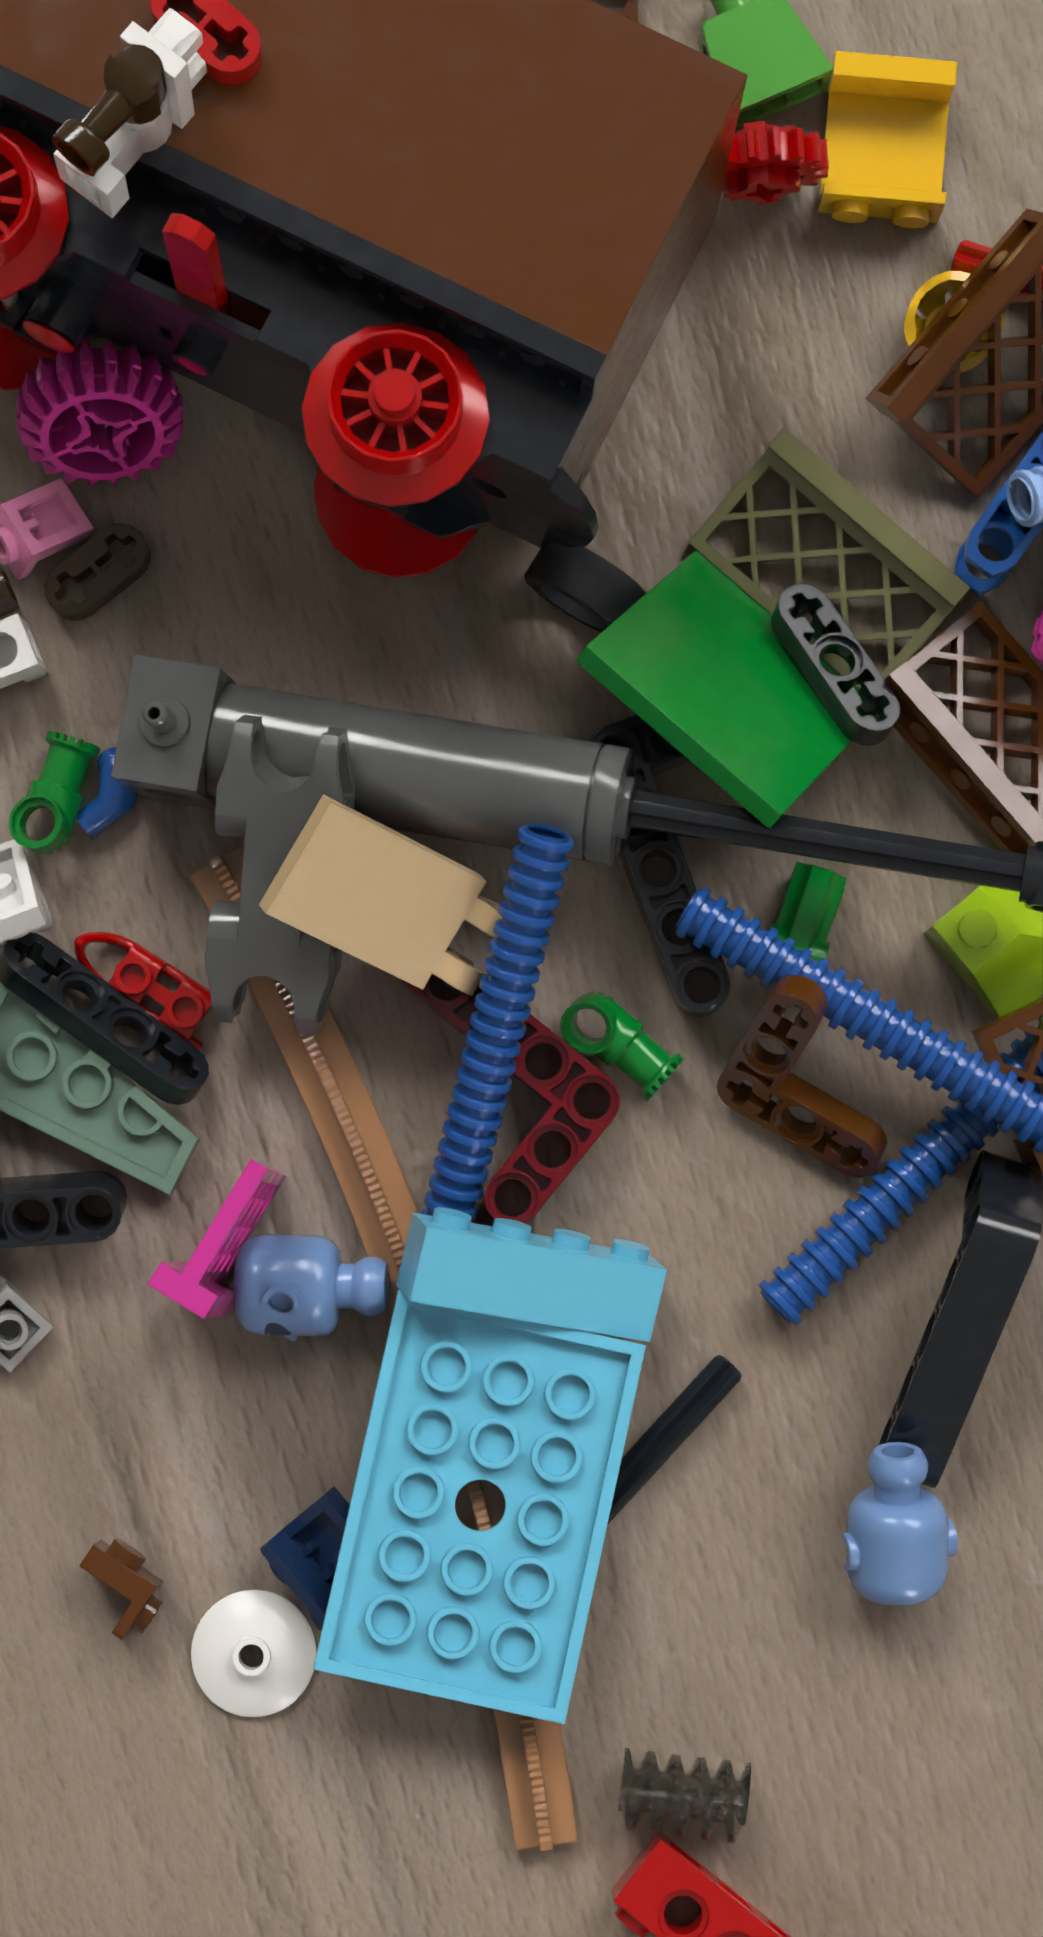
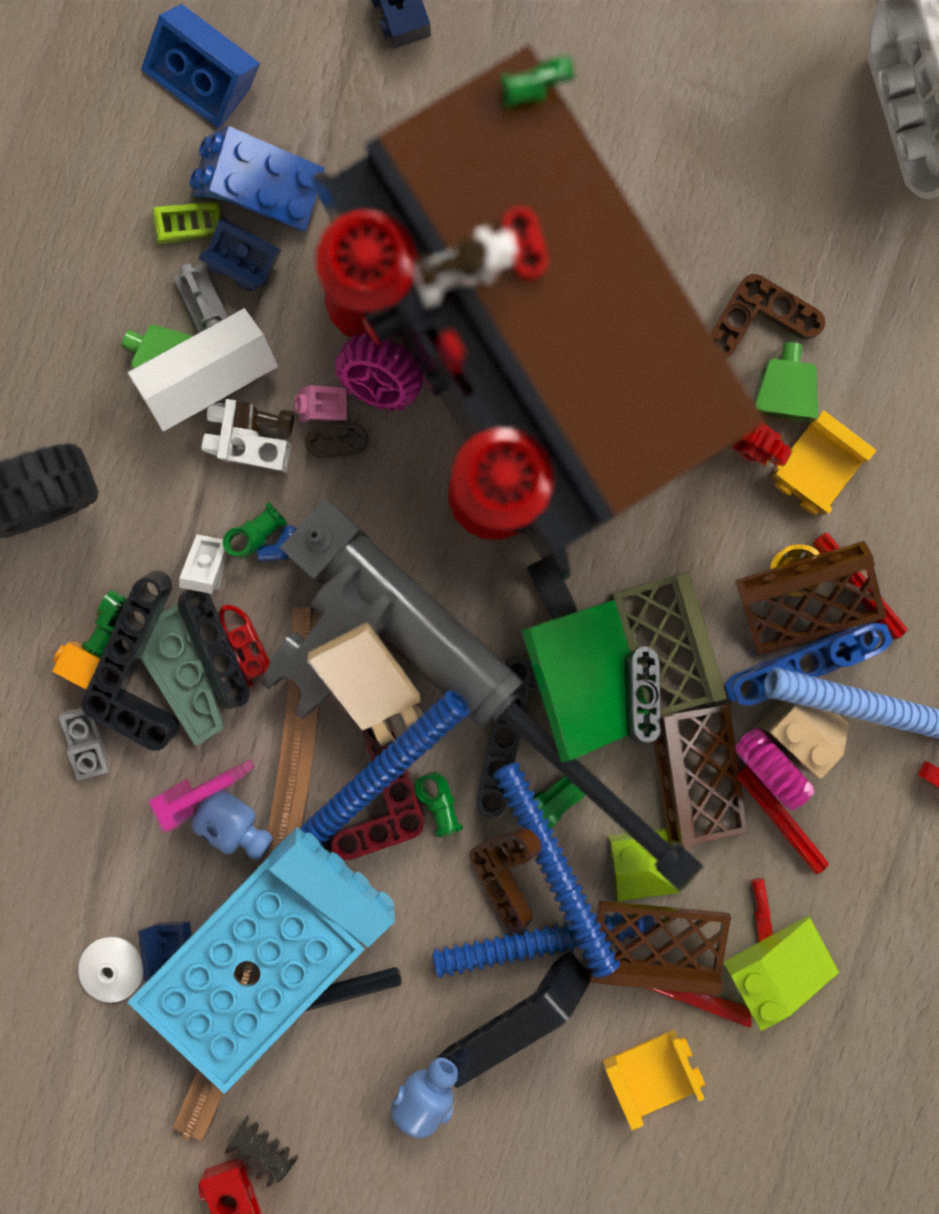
camera: 30 degrees right, 5 degrees up
(122, 1570) = (73, 901): reddish brown bracket -> none

